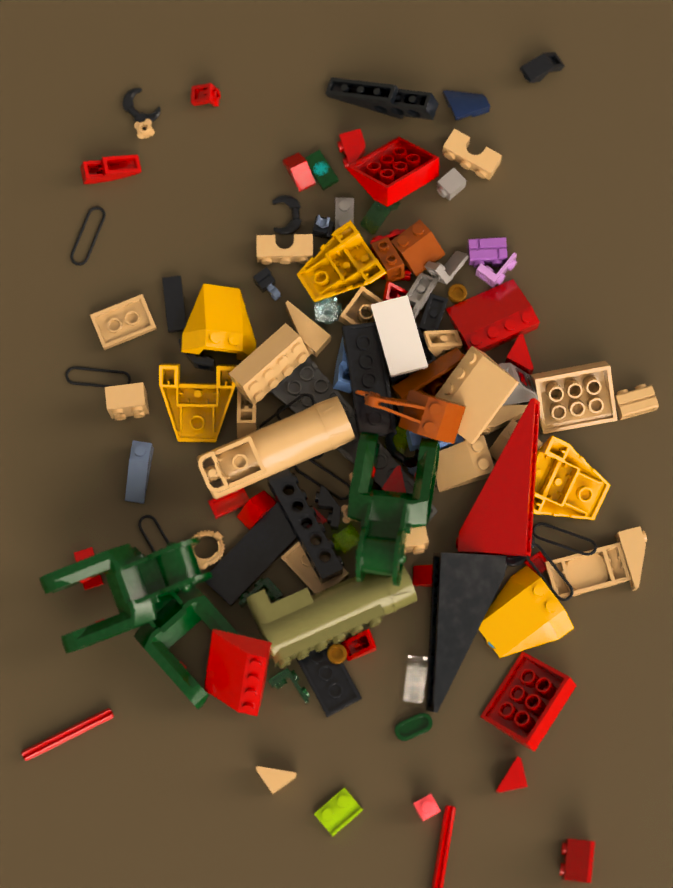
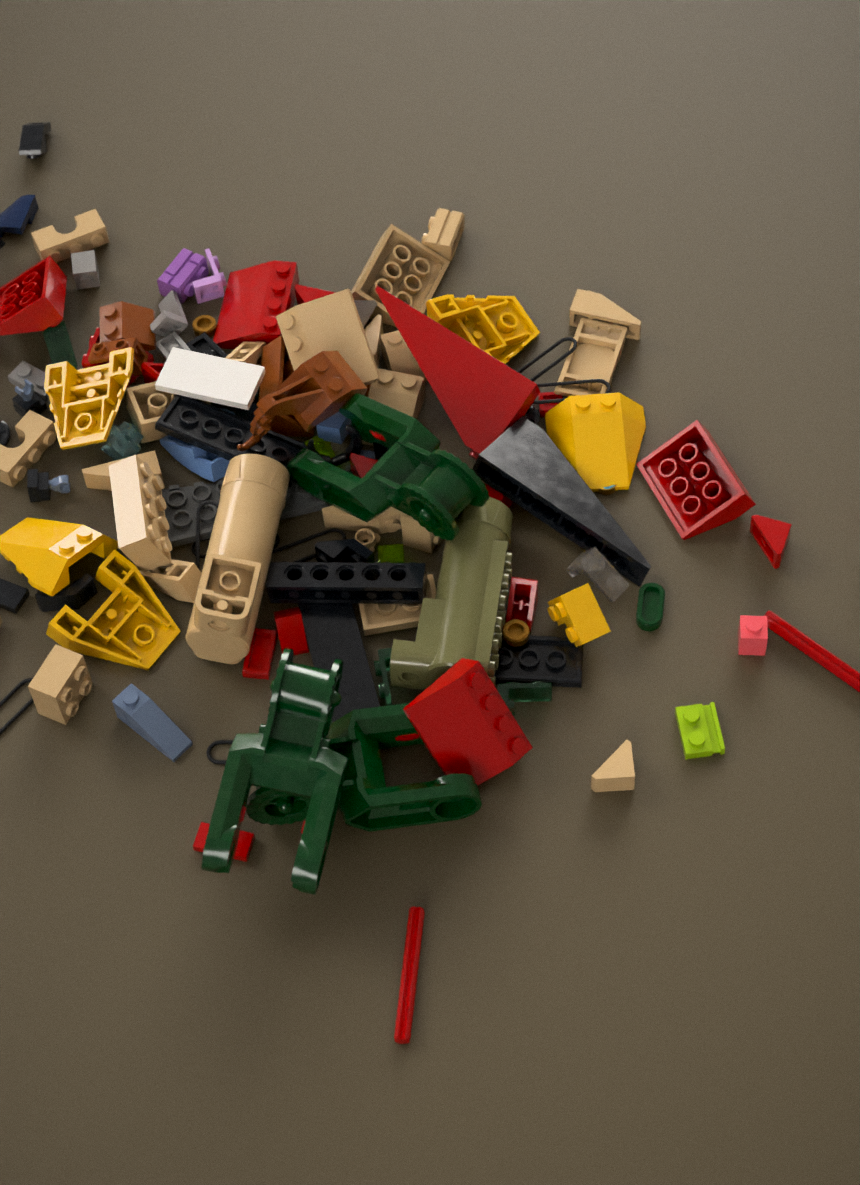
camera: 55 degrees left, 20 degrees down
(371, 684) = (580, 614): none -> yellow brick

